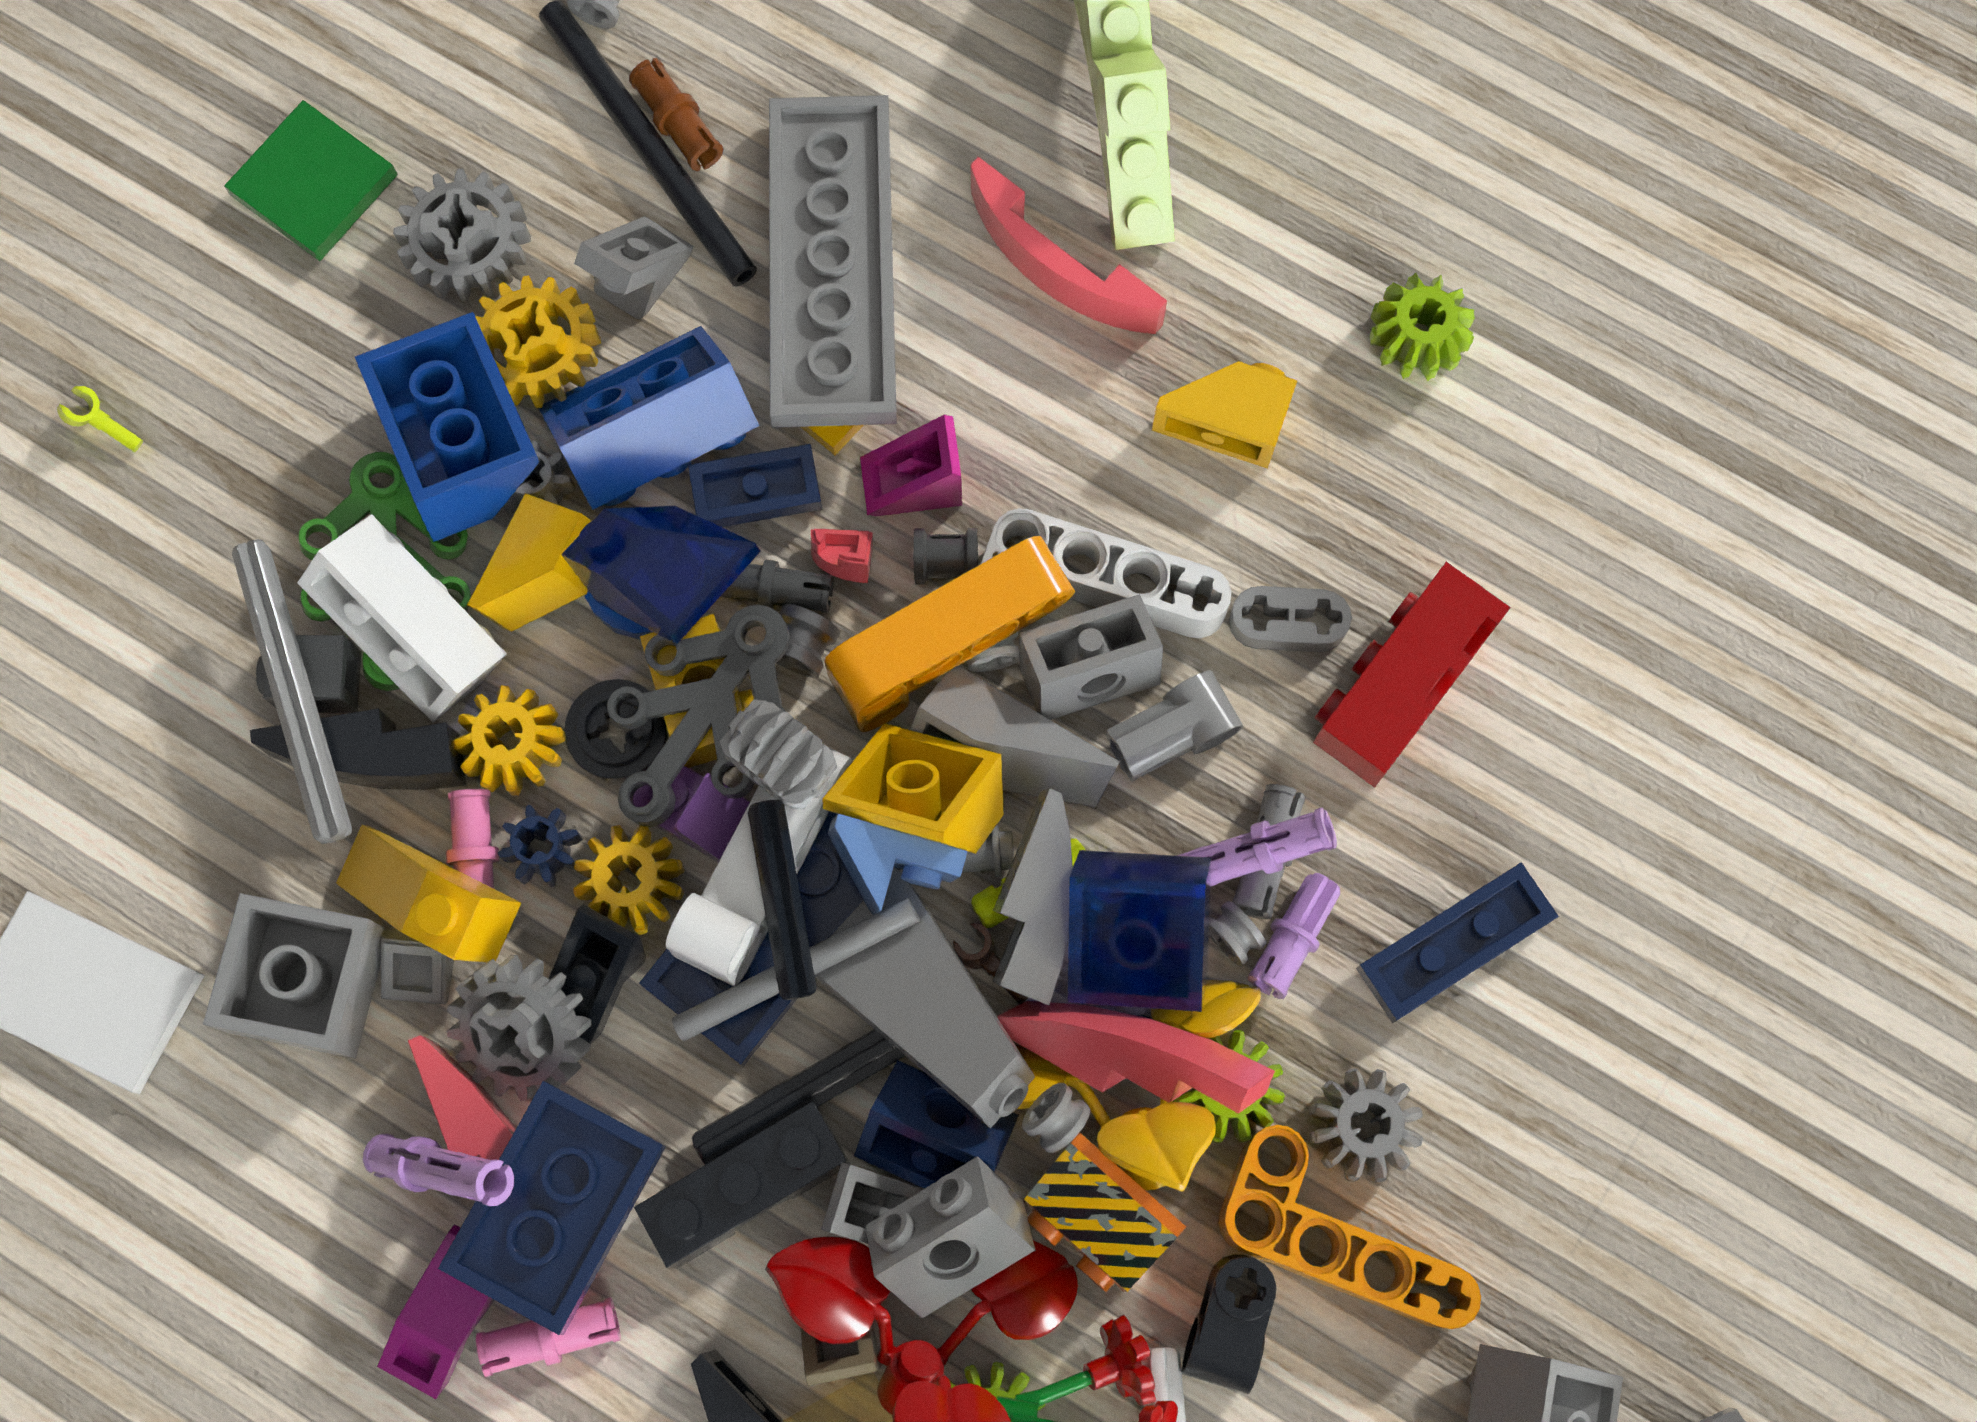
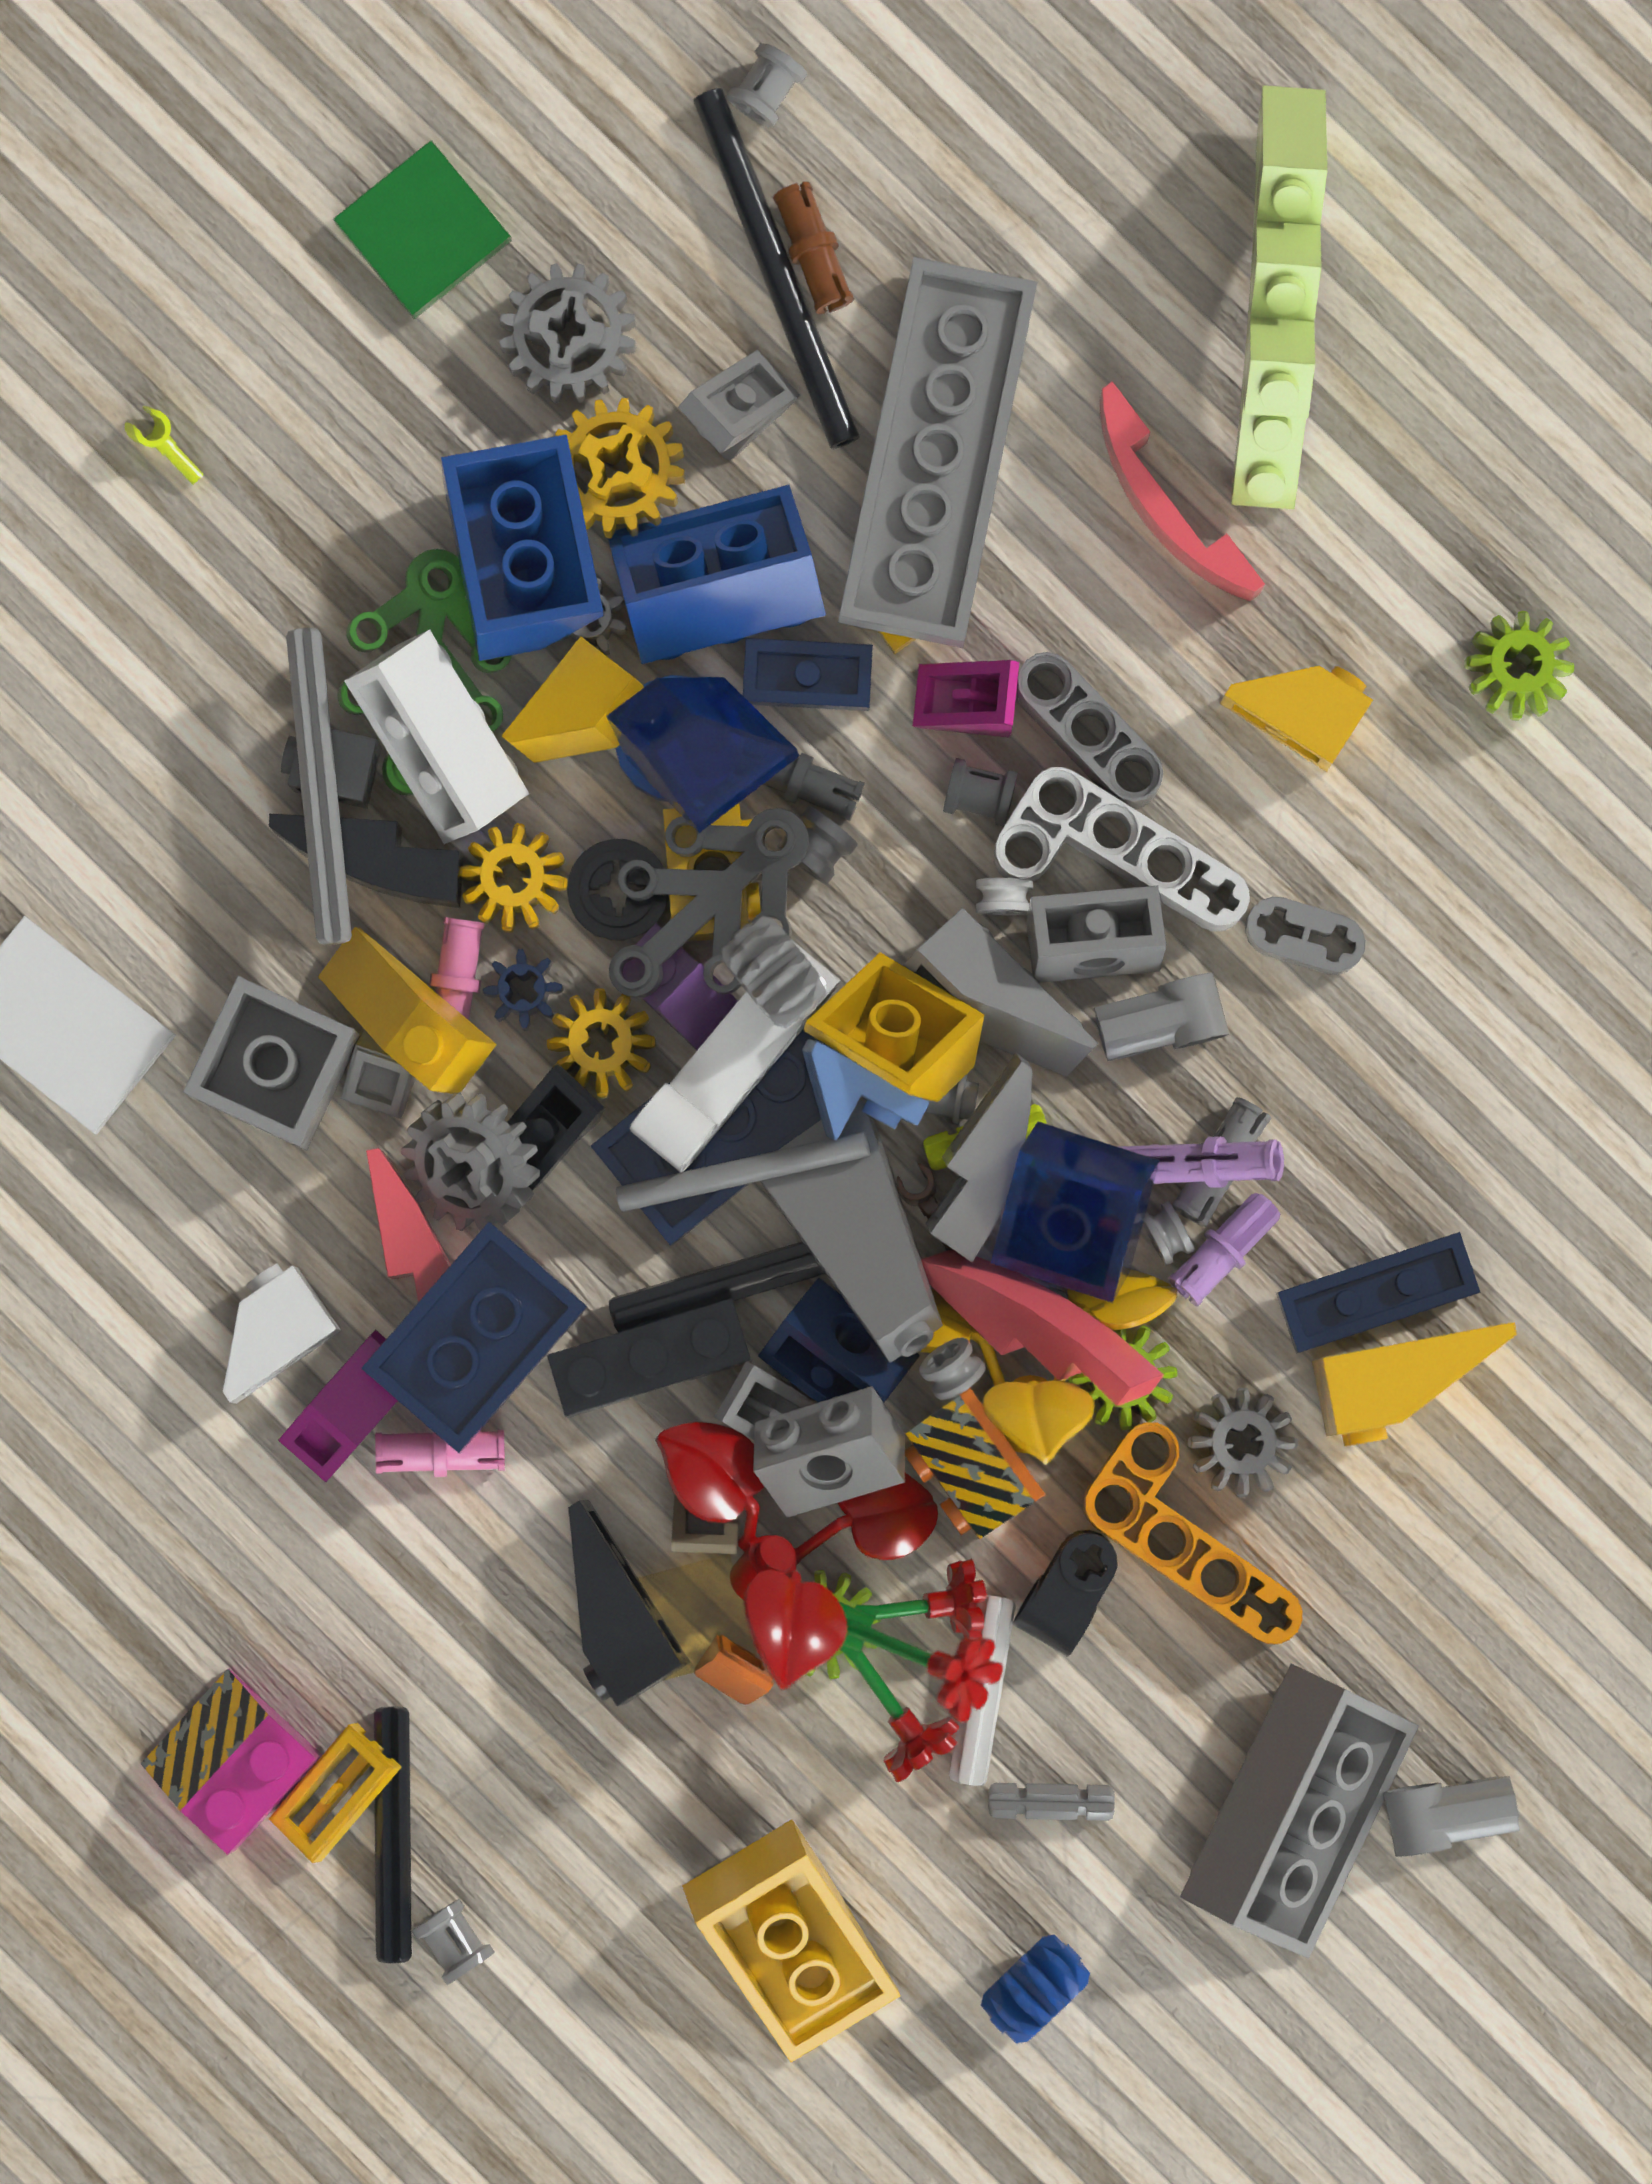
camera: 15 degrees right, 10 degrees up
(350, 1252) = (274, 1330): none -> white slope
(425, 1165) = (357, 1269): lavender pin -> none
(782, 899) = (745, 1106): black axle -> none
(843, 553) = (879, 764): coral tile -> none
(944, 630) = (963, 877): light orange beam -> none
(1024, 449) = (1080, 700): none -> light grey beam
(1408, 673) = (1398, 1024): red wedge -> none
(1492, 1032) = (1390, 1383): none -> yellow slope

